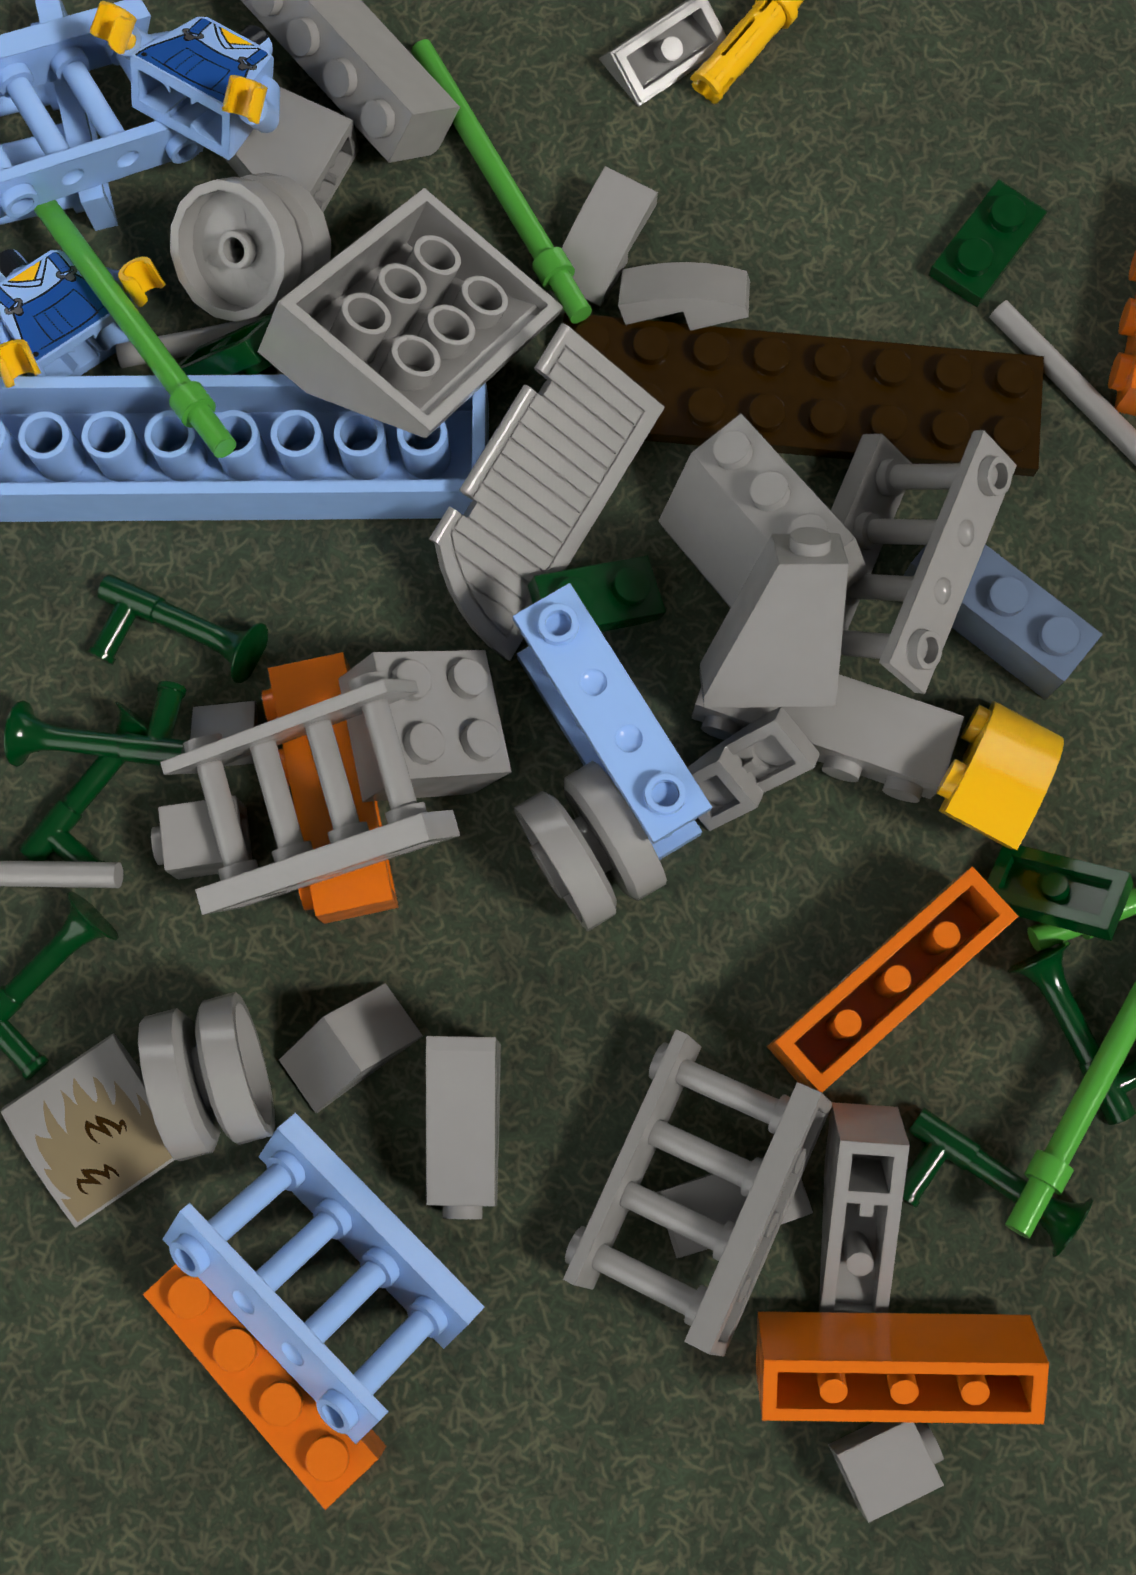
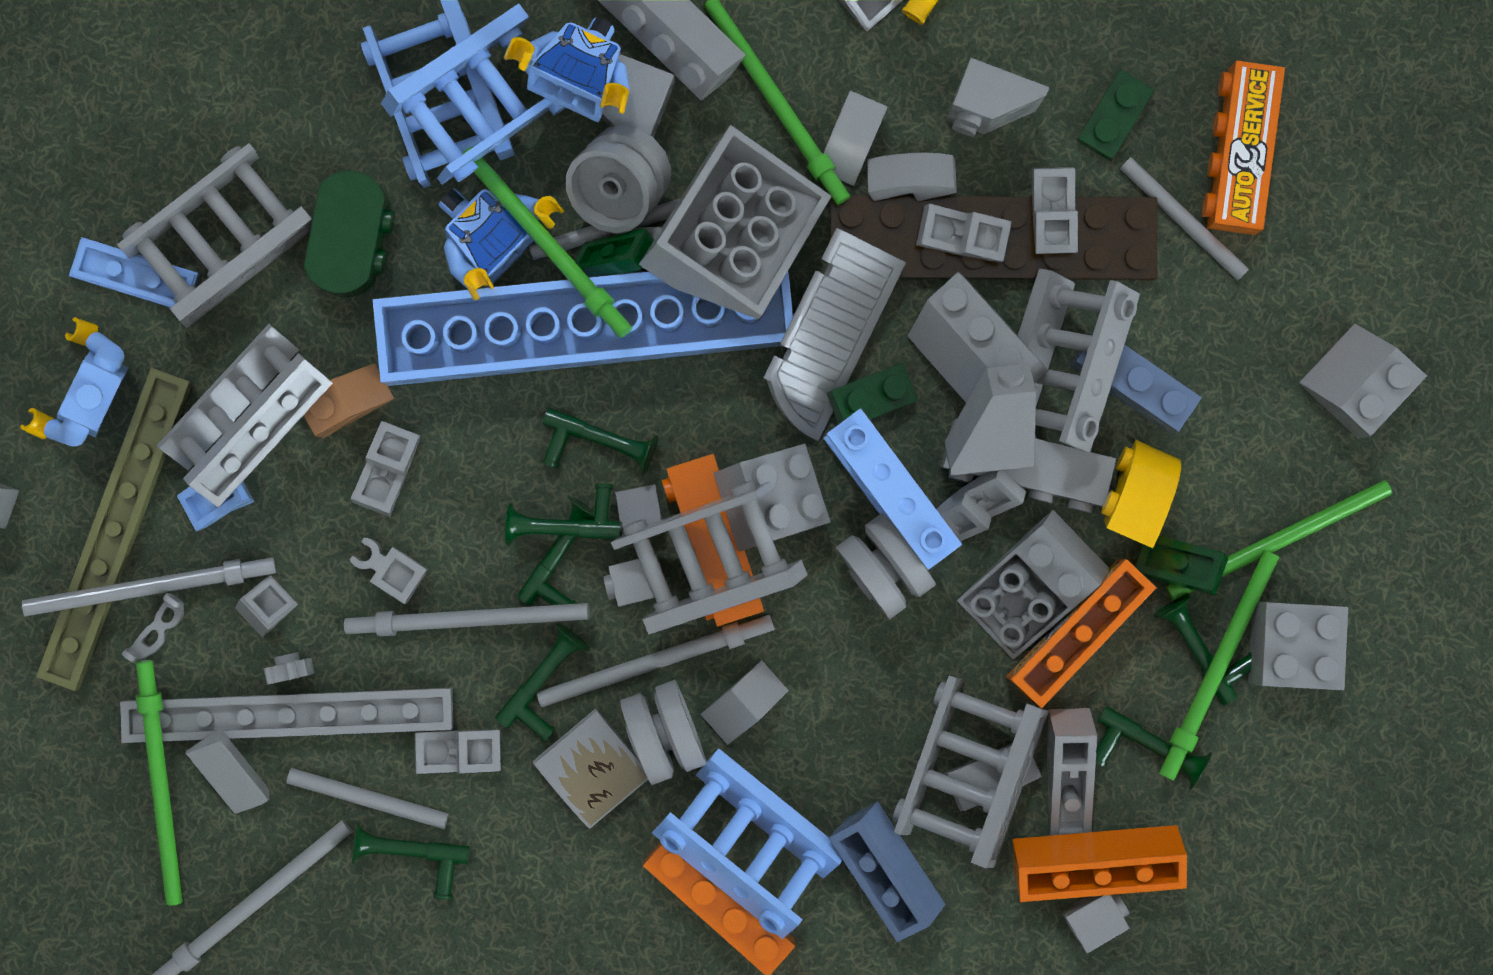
camera: 10 degrees left, 10 degrees up
(342, 939) = (731, 636): none -> light grey bar
(462, 1124) = (823, 745): light grey slope -> none
(547, 1348) = (887, 872): none -> sand blue brick
(753, 375) = (963, 233): none -> light grey slope
(813, 188) = (992, 99): none -> light grey slope
(820, 904) = (1034, 585): none -> light grey slope
(892, 351) = (1054, 210): none -> light grey slope

